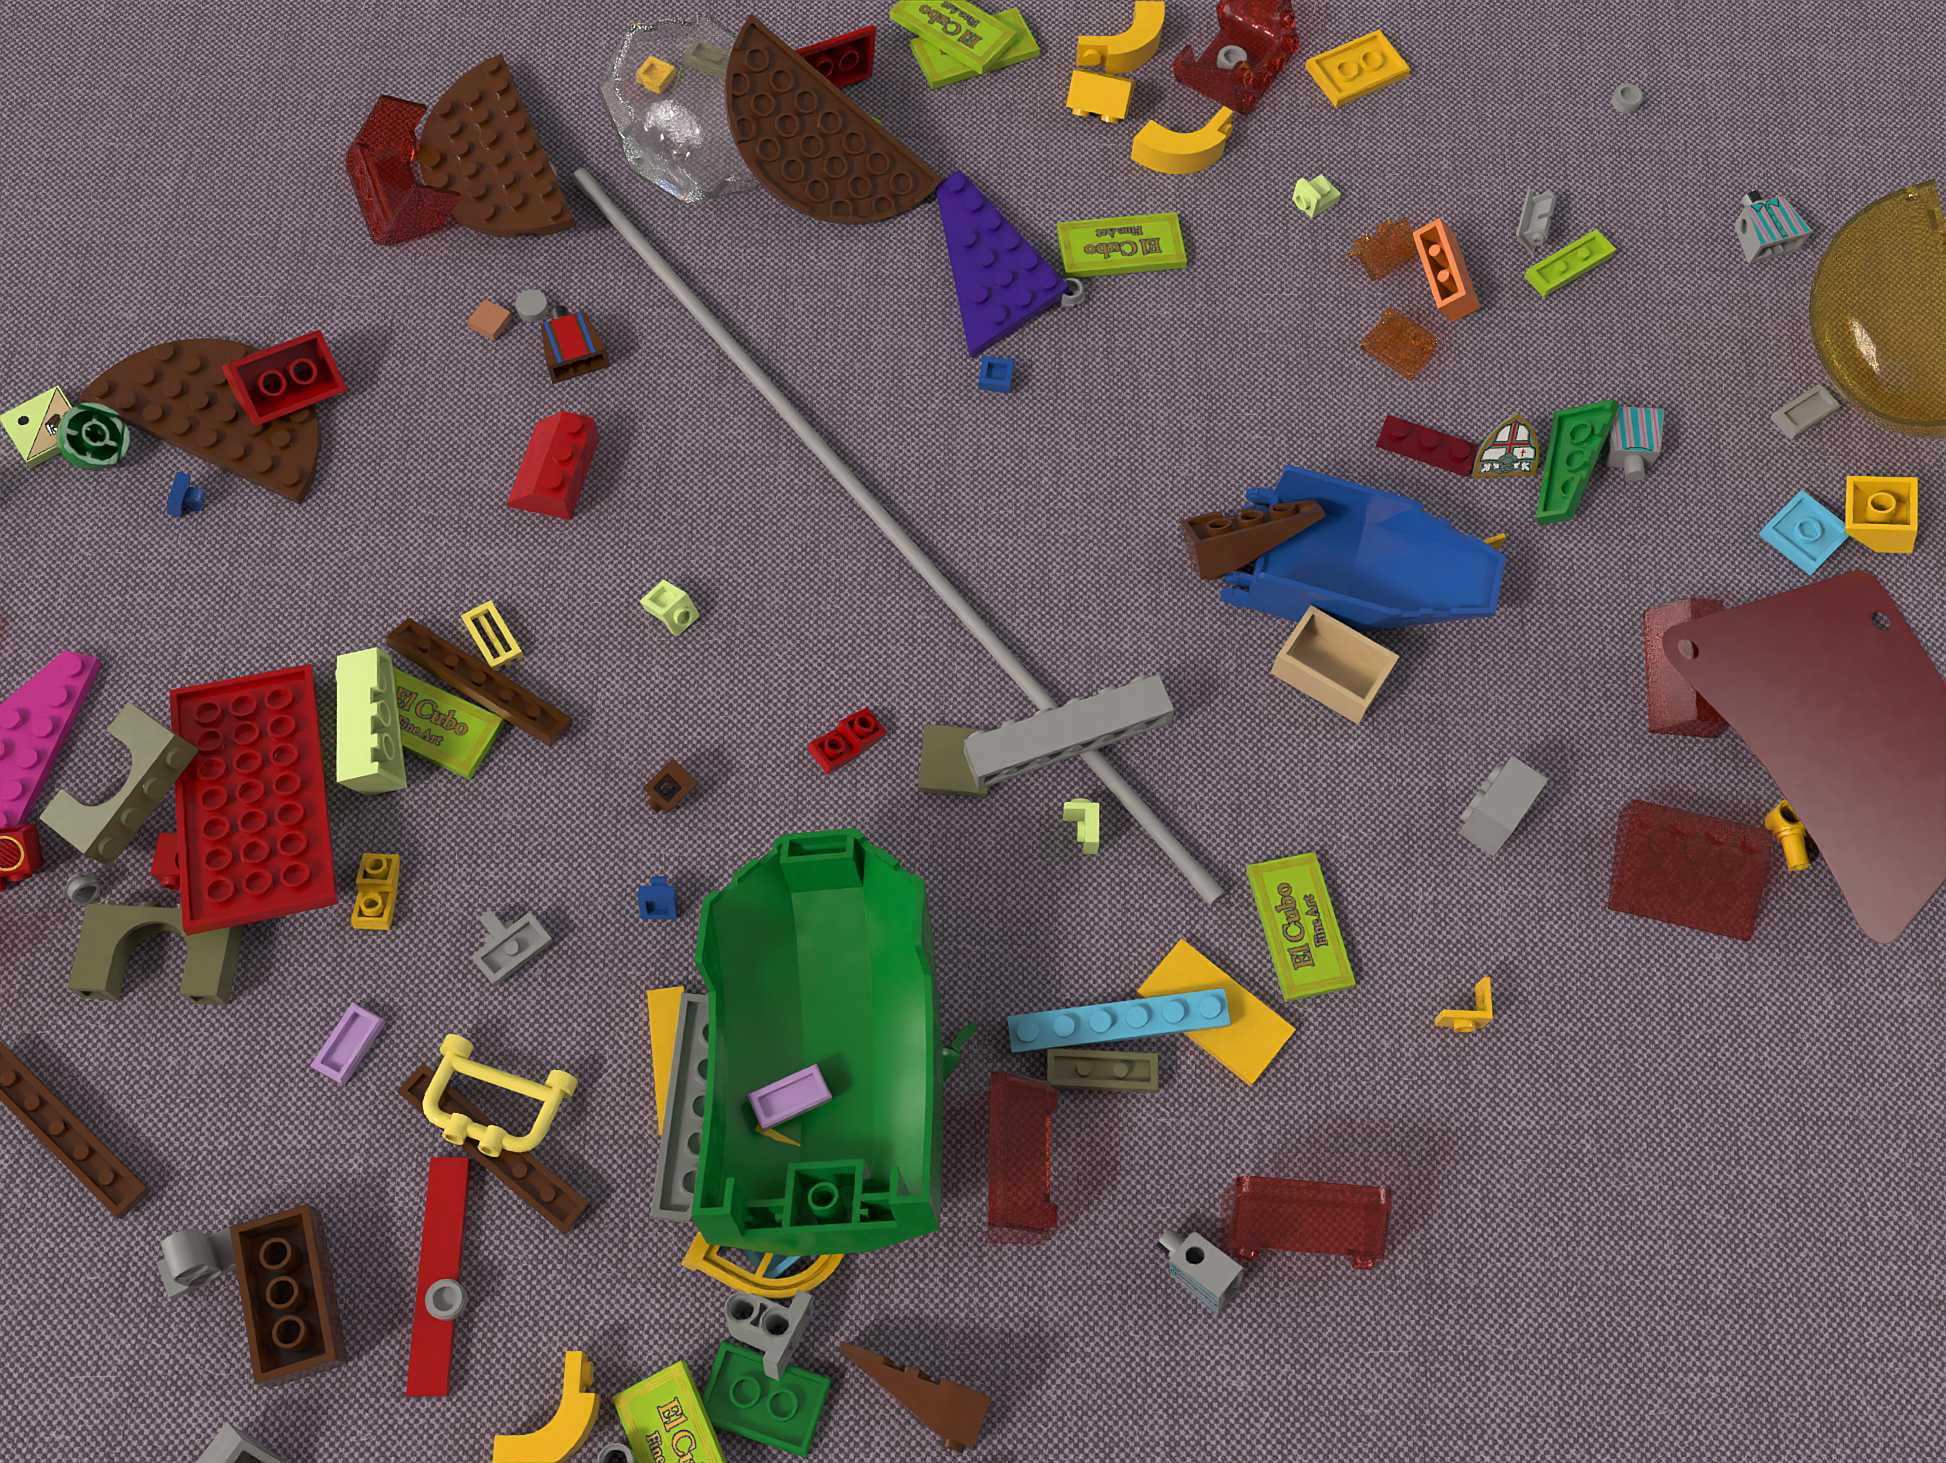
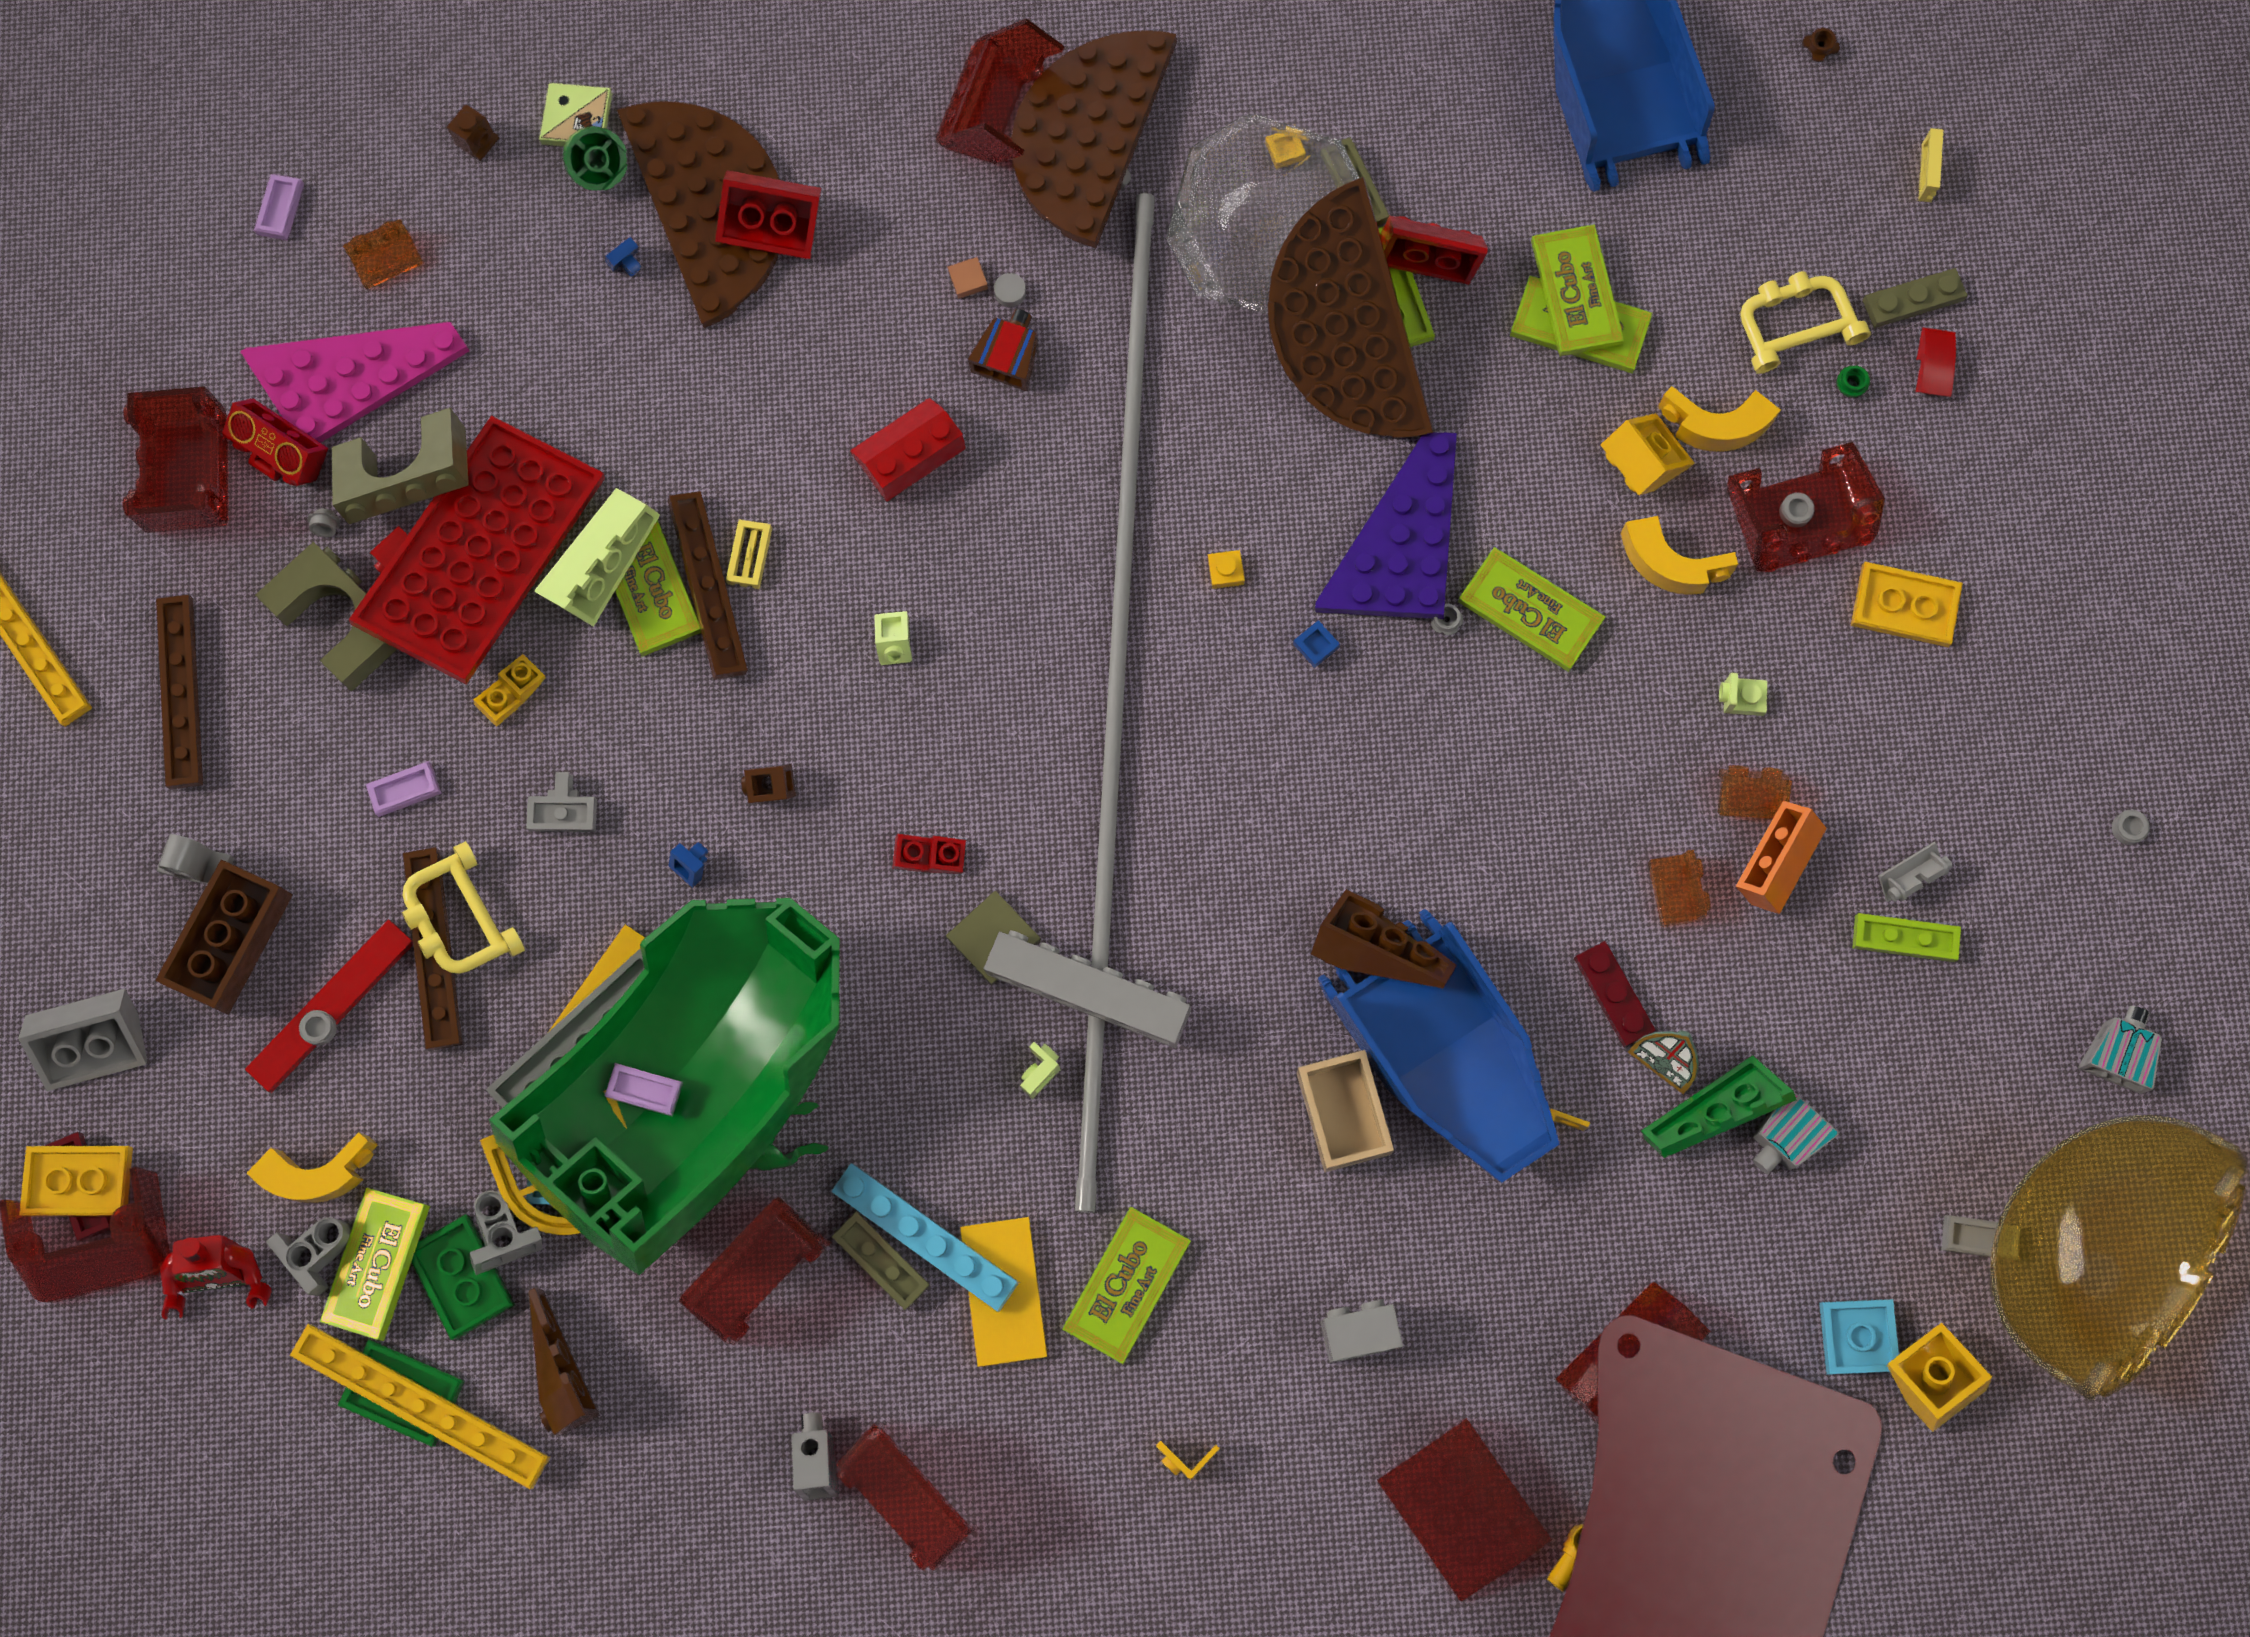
camera: 50 degrees right, 10 degrees up
(880, 375) = (1226, 569): none -> yellow plate

